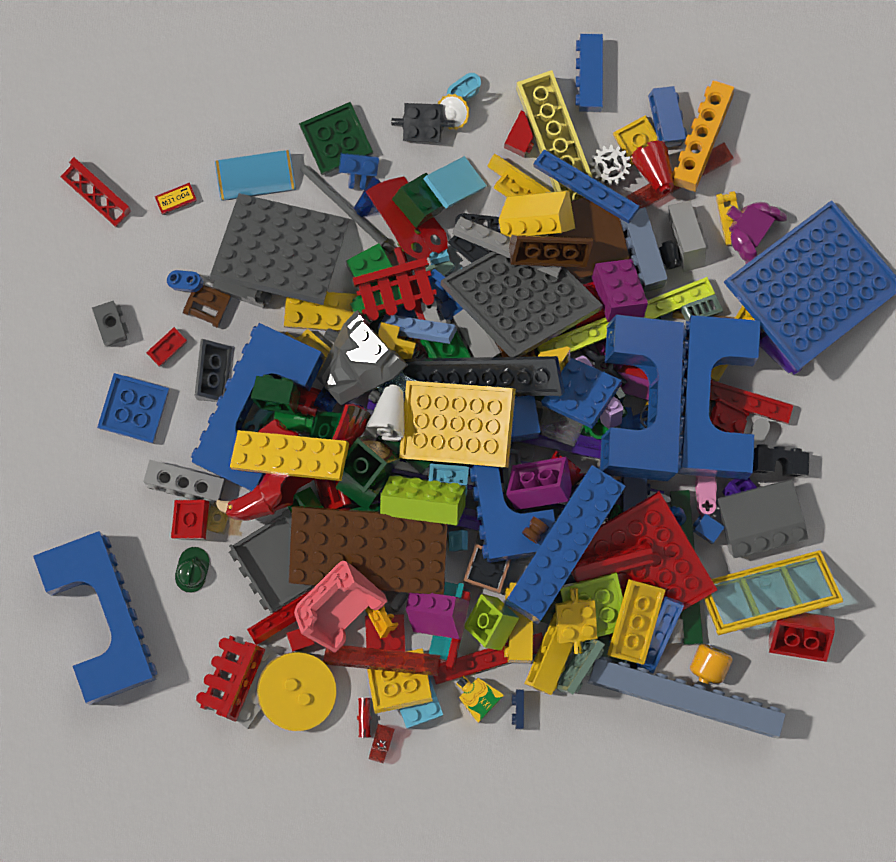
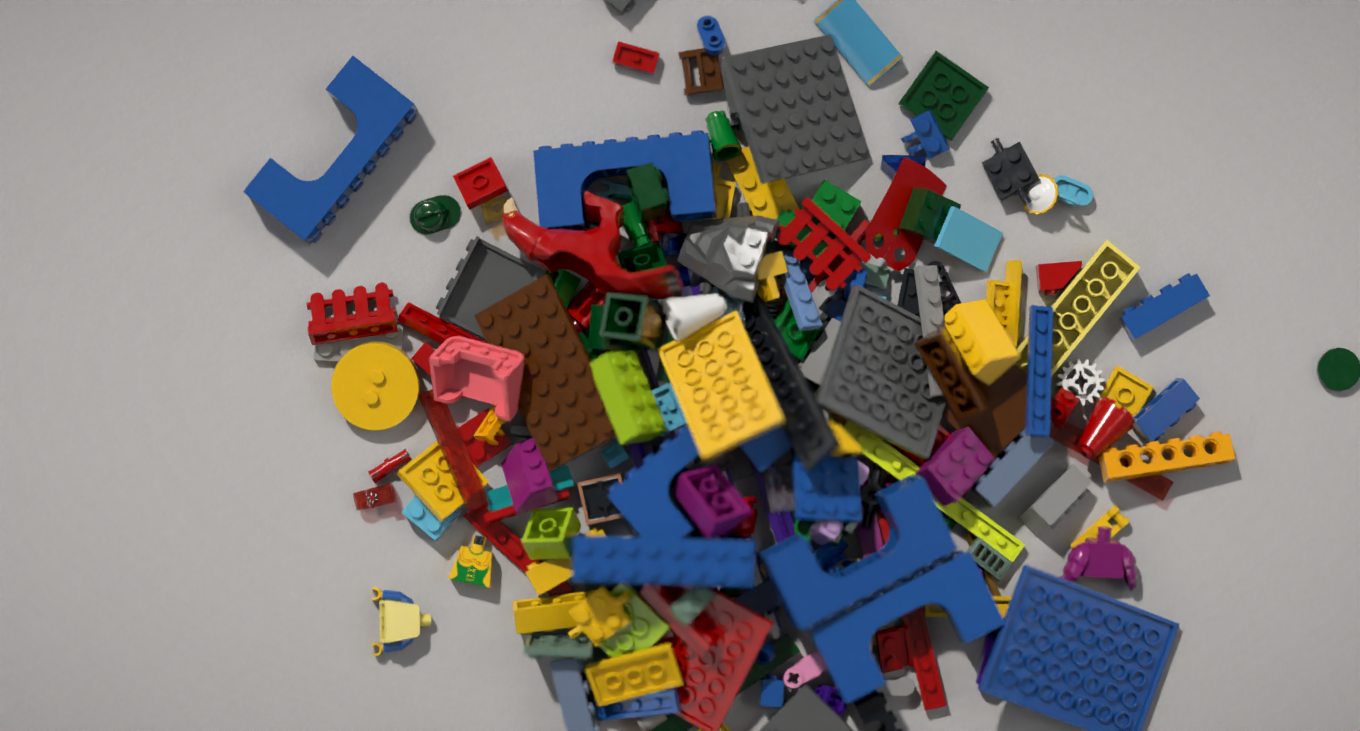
camera: 65 degrees right, 5 degrees up
(133, 408) = (556, 62): blue plate -> none
(157, 469) = (509, 121): light grey brick -> none
(212, 370) = (639, 116): dark grey slope -> none
(269, 316) = (722, 137): none -> green plant
(289, 455) = (592, 241): yellow plate -> none
(347, 209) = (867, 202): dark grey bar -> none
(436, 258) = (881, 266): medium azure tile -> none
(487, 780) = (398, 621): none -> light yellow torso
(518, 702) = (492, 605): dark blue plate -> none
(535, 529) = (660, 523): reddish brown wheel -> none
(609, 543) = (692, 603): none -> sand green plate
(621, 185) = (1062, 406): none -> red brick
(670, 255) = (1025, 495): black brick -> none

